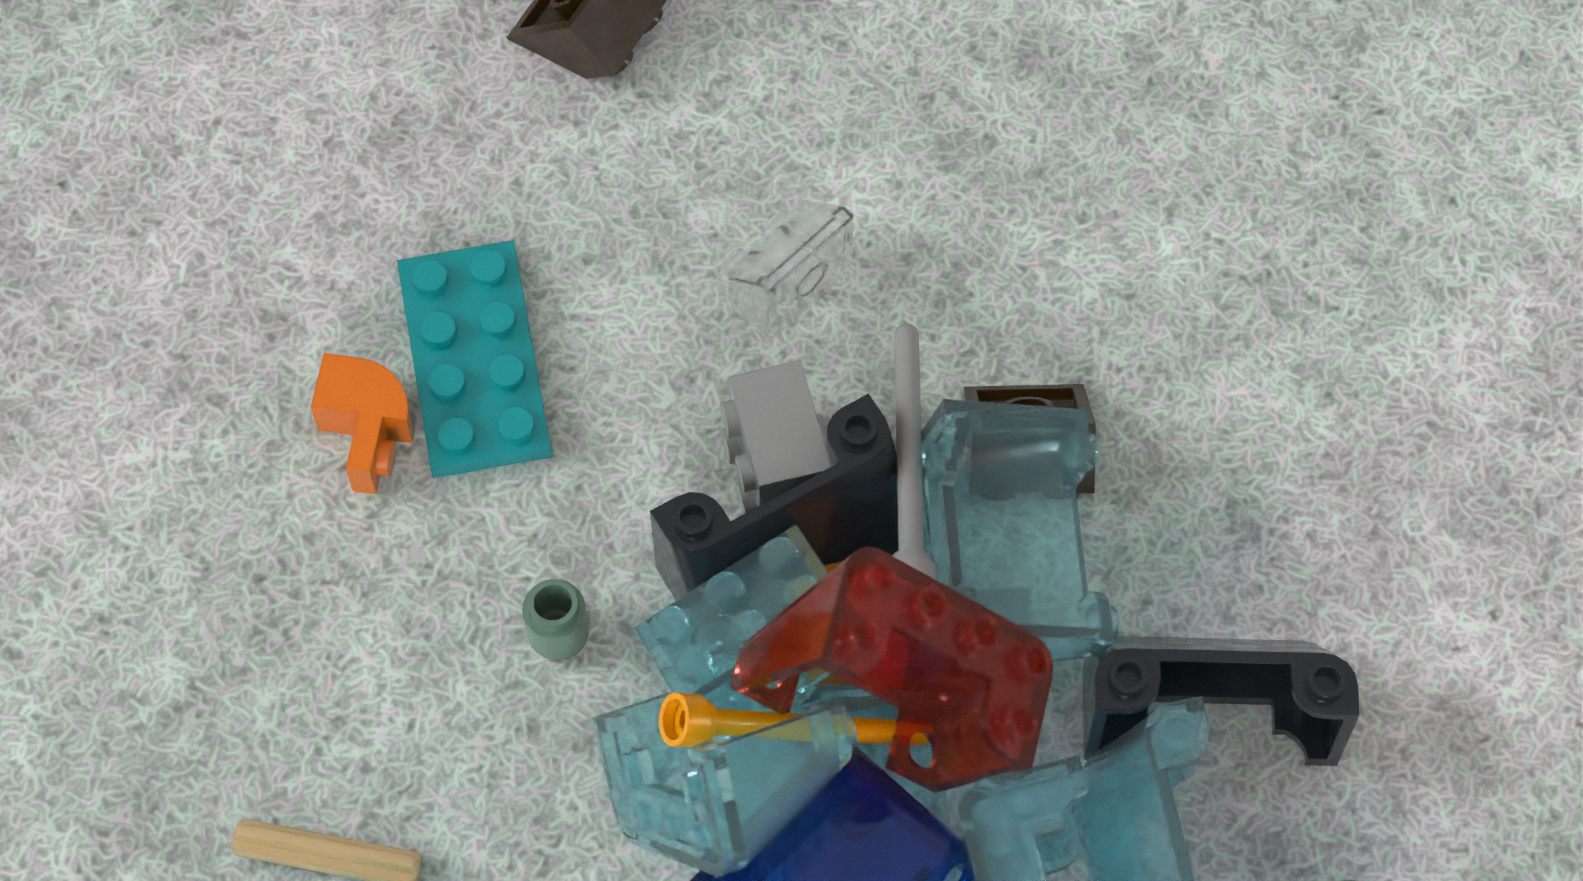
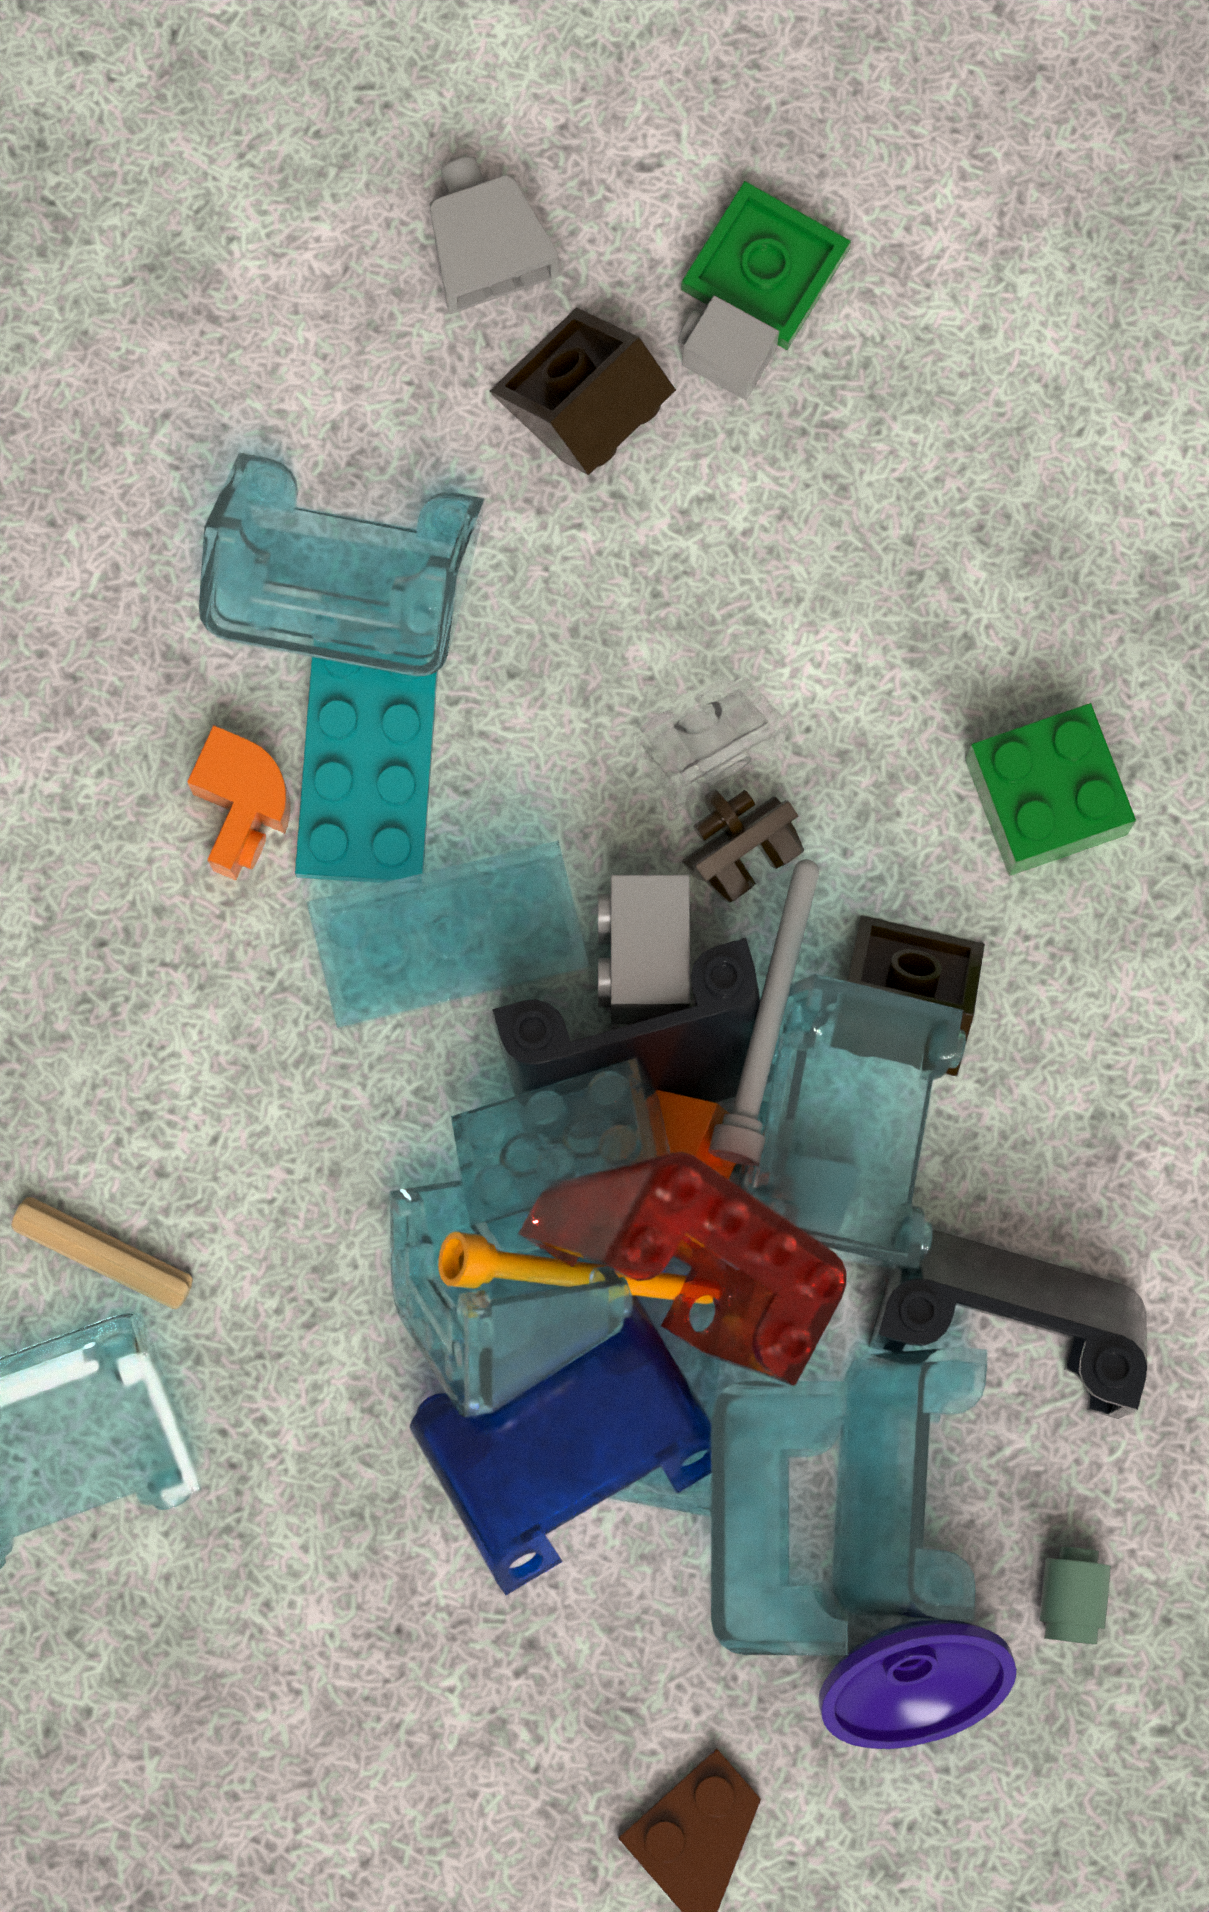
camera: 15 degrees right, 15 degrees up
(404, 217) = (334, 580): none -> clear light blue windscreen
(555, 619) = (373, 1054): sand green brick -> none
(586, 481) = (448, 935): none -> clear light blue brick
(859, 329) = (765, 827): none -> dark brown hips
(1102, 235) = (1050, 789): none -> green brick

